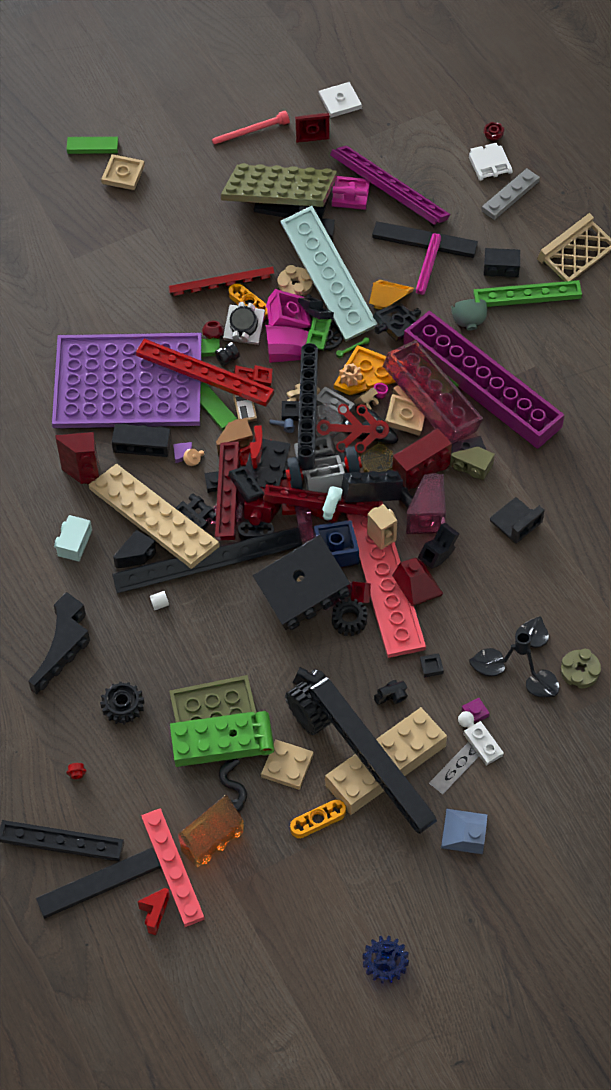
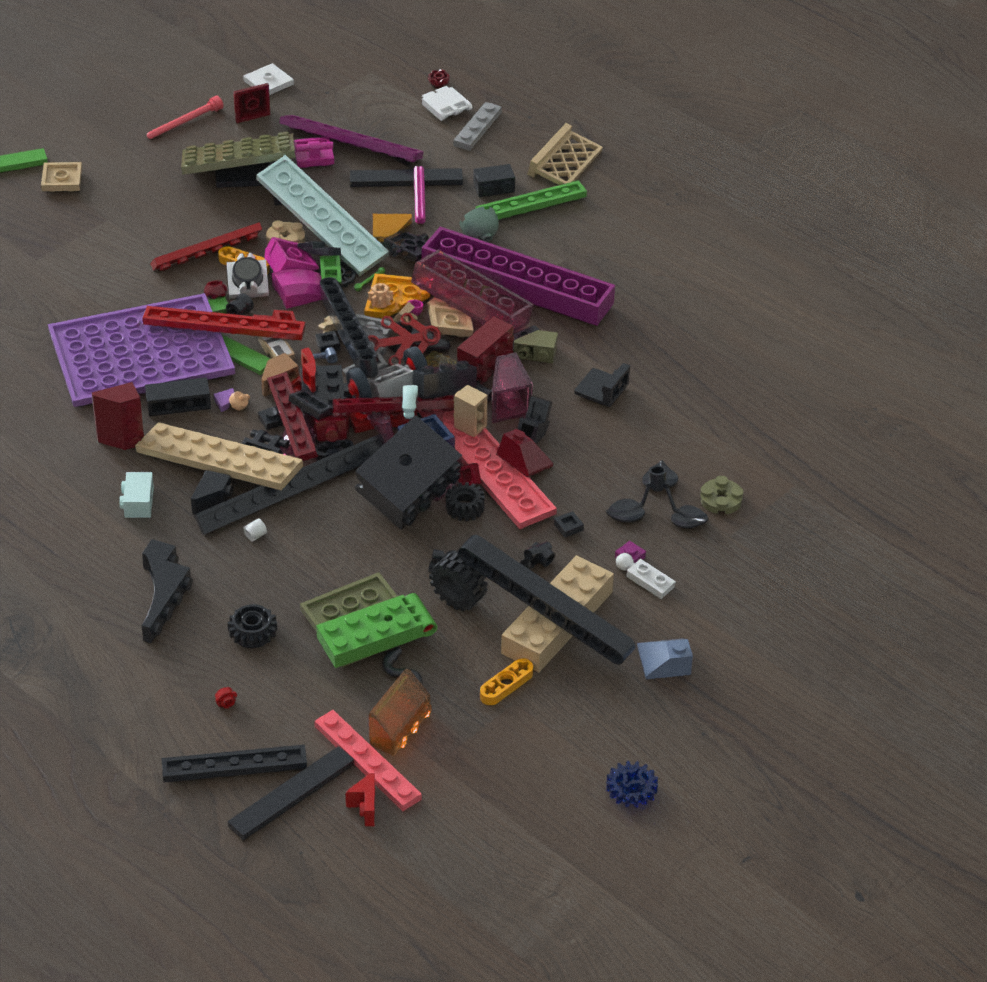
camera: 20 degrees left, 15 degrees down
(287, 764) = (454, 643): tan plate -> none
(454, 768) = (630, 608): flat silver sticker -> none

